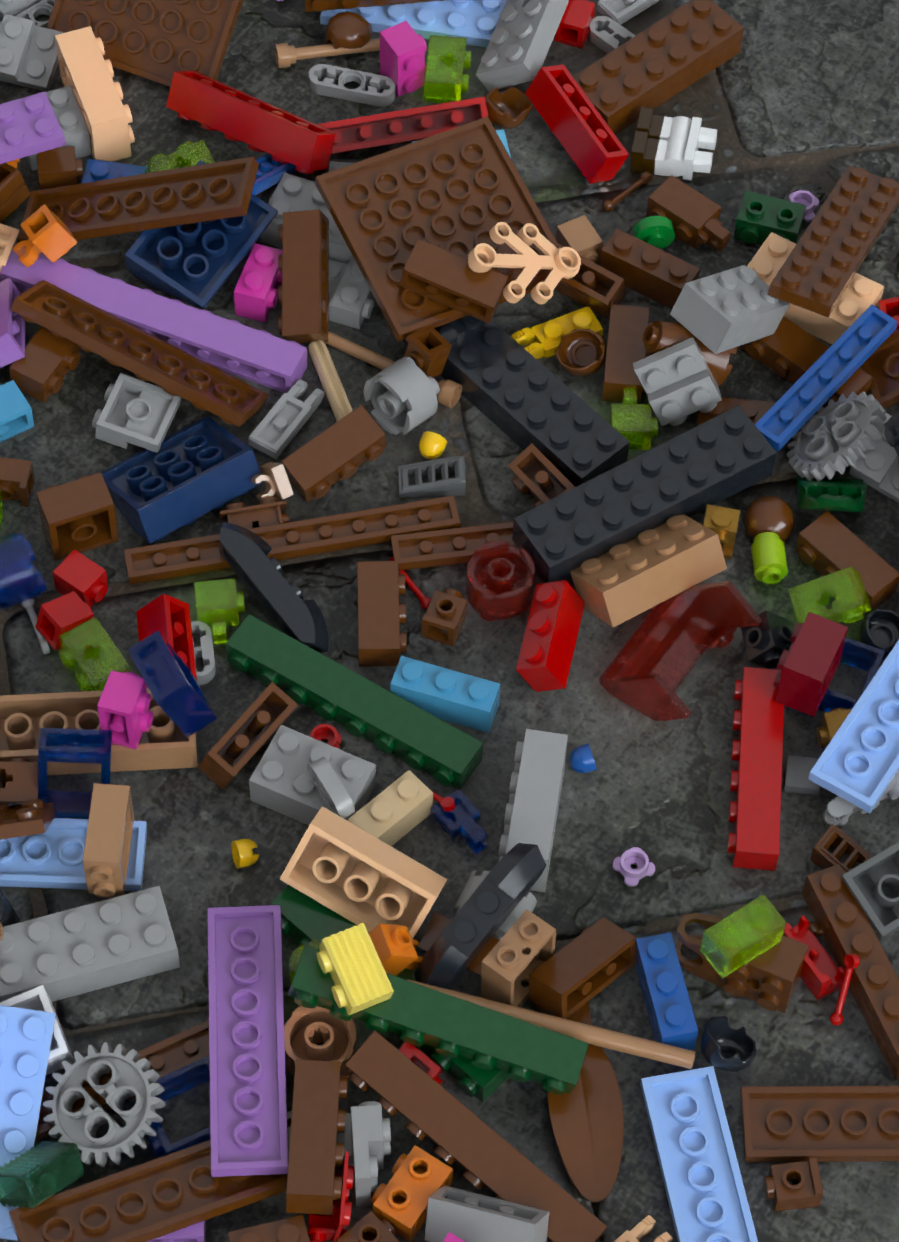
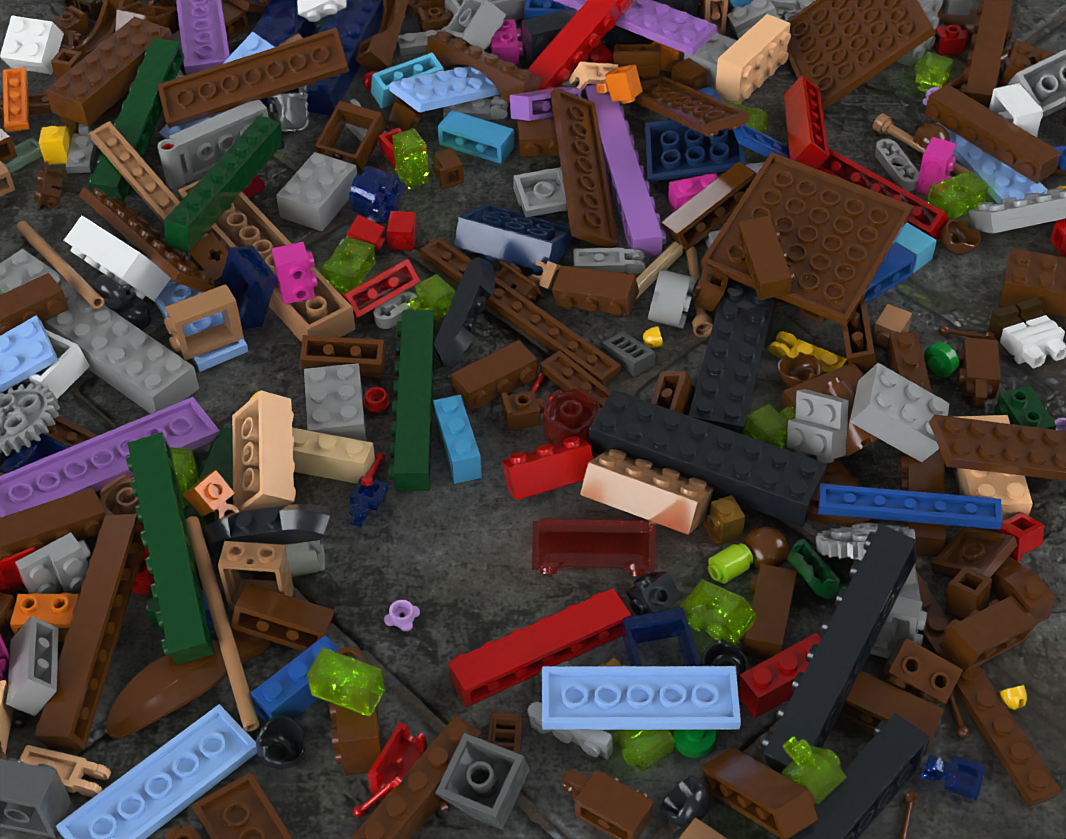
camera: 60 degrees right, 10 degrees down
(77, 515) = (438, 200): reddish brown brick -> none
(172, 684) = (304, 271): clear blue window -> none
(330, 787) = (316, 403): light grey beam -> none
(354, 969) = (155, 464): light yellow brick -> none
(535, 795) = (394, 527): light grey brick -> none
(561, 261) = (817, 283): light nougat plant -> none
(576, 124) = (983, 273): red brick -> none
(582, 759) = (469, 542): blue hinge -> none
(809, 663) = (633, 614): dark red brick -> none

